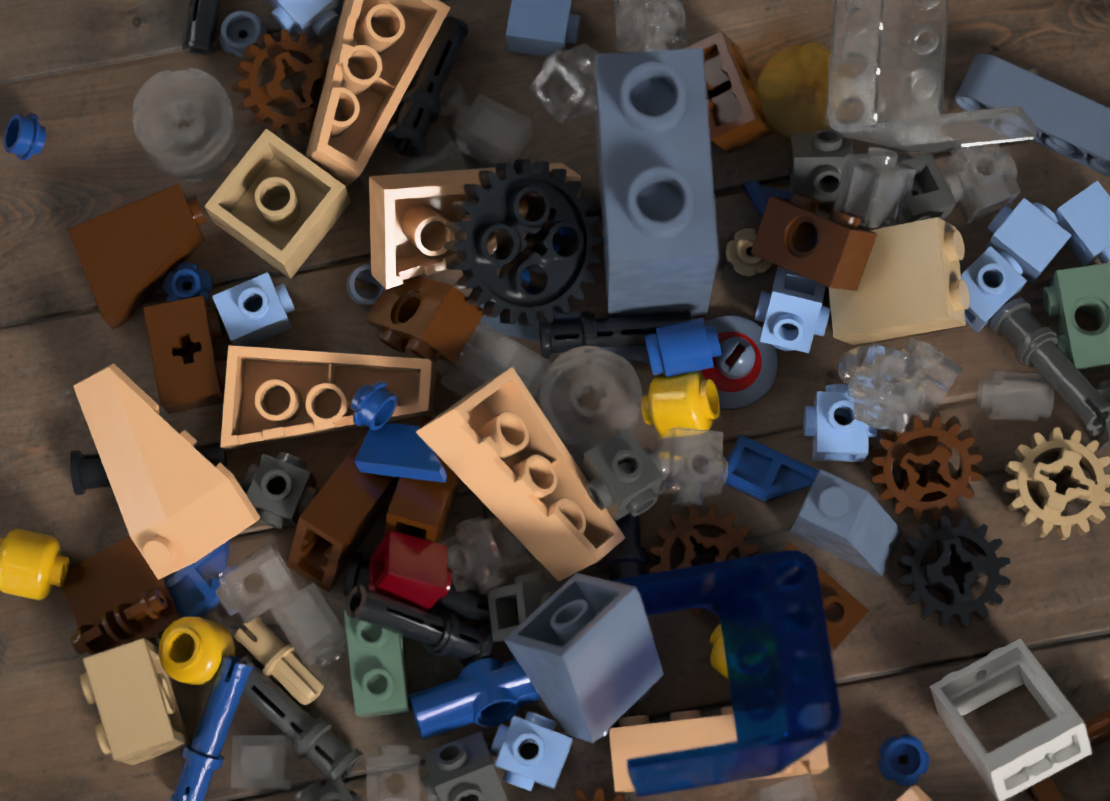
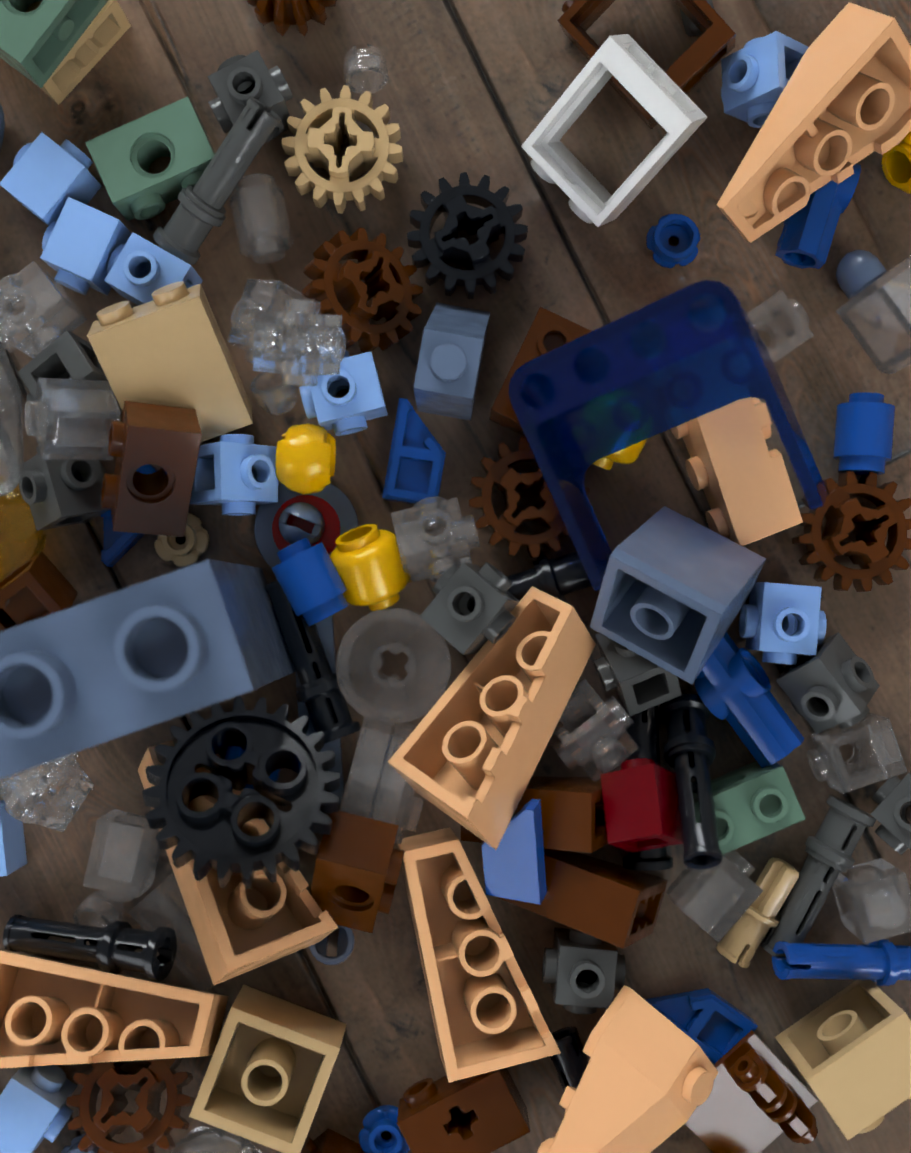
camera: 110 degrees left, 10 degrees up
(194, 650) = (780, 1011): yellow head -> none
(250, 603) = (708, 964): clear brick -> none
(254, 310) = (394, 1056): light blue brick -> none
(373, 405) = (473, 902): blue plate -> none
(791, 375) = (305, 458): none -> yellow piece

